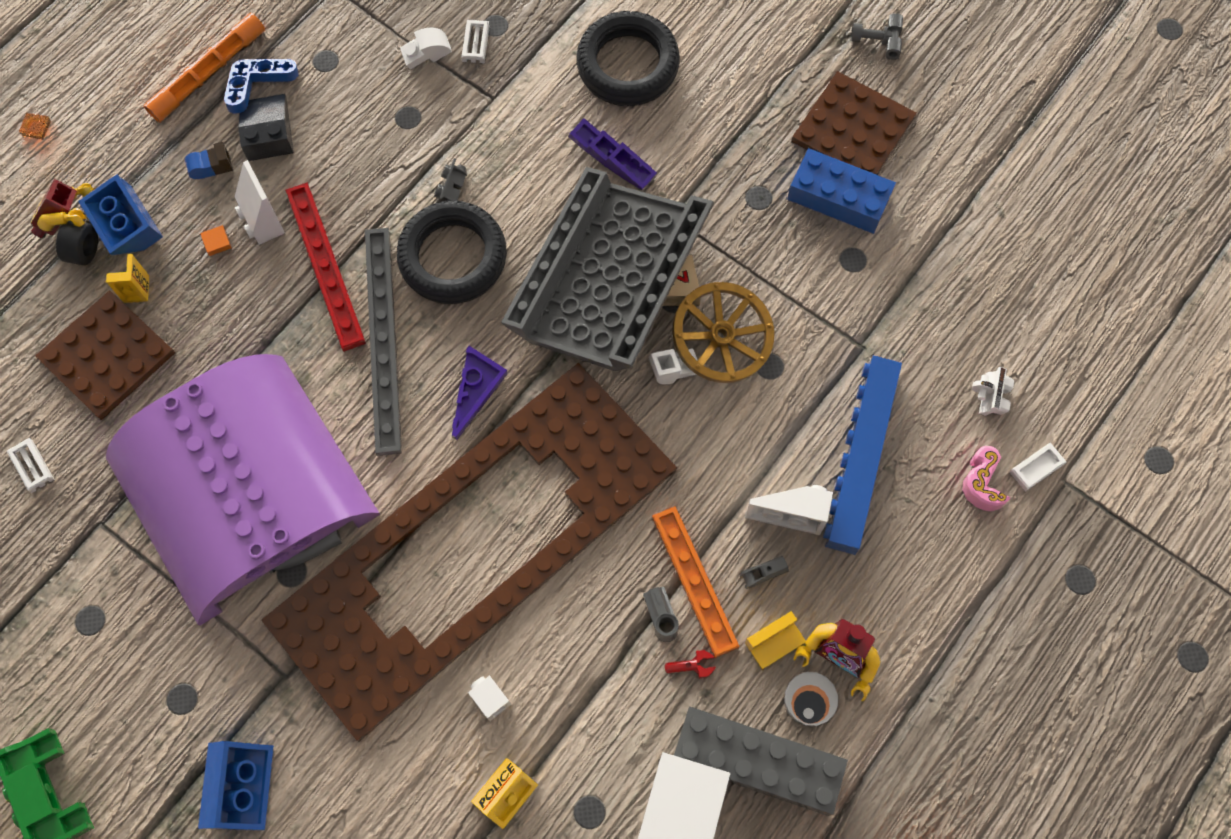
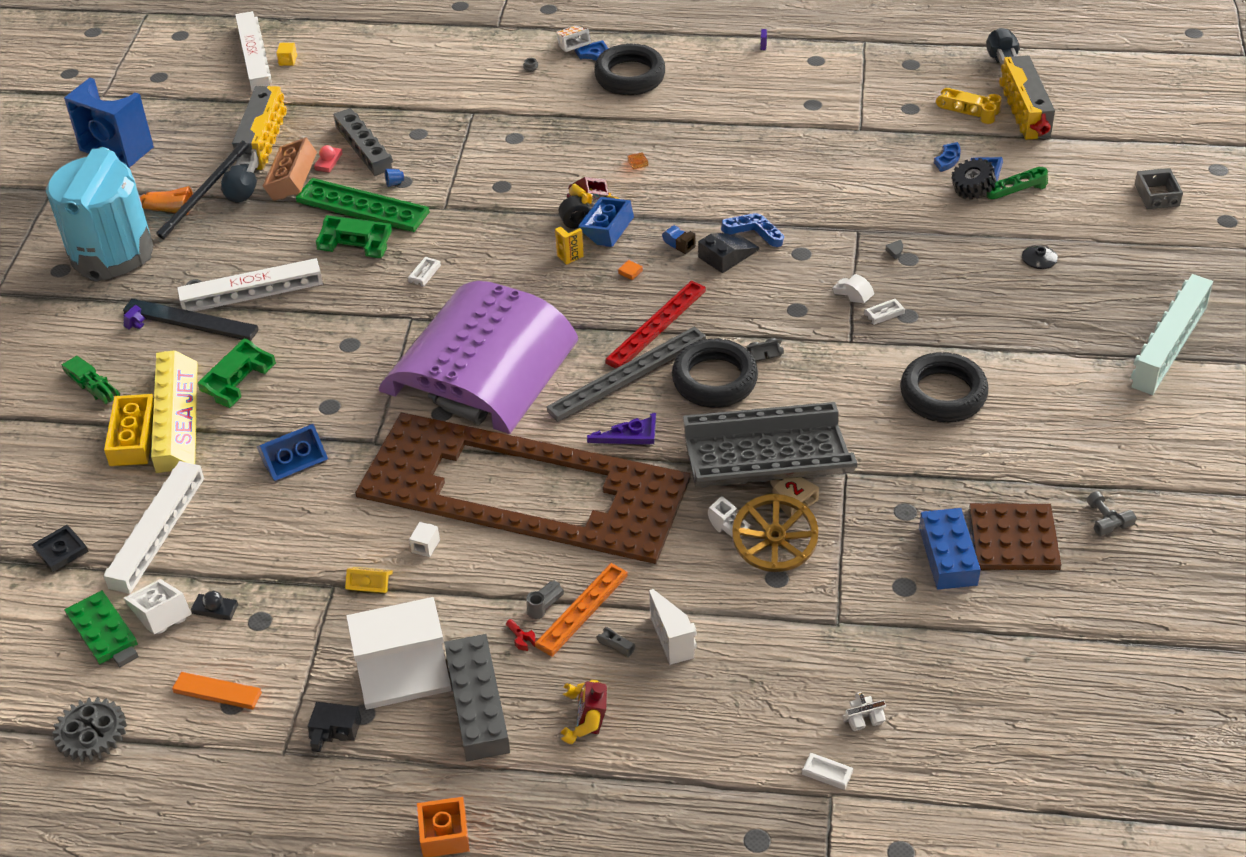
camera: 60 degrees right, 25 degrees down
(105, 354) = (517, 263): reddish brown plate -> none
(169, 98) = (739, 203): orange piece -> none
(256, 207) = (665, 271): white slope -> none
(612, 155) = (862, 416): dark purple slope -> none
(775, 640) = (570, 667): yellow panel -> none
(811, 699) = (542, 711): tile -> none
(863, 455) = (749, 655): blue brick -> none
(976, 482) = (786, 733): bright pink animal -> none

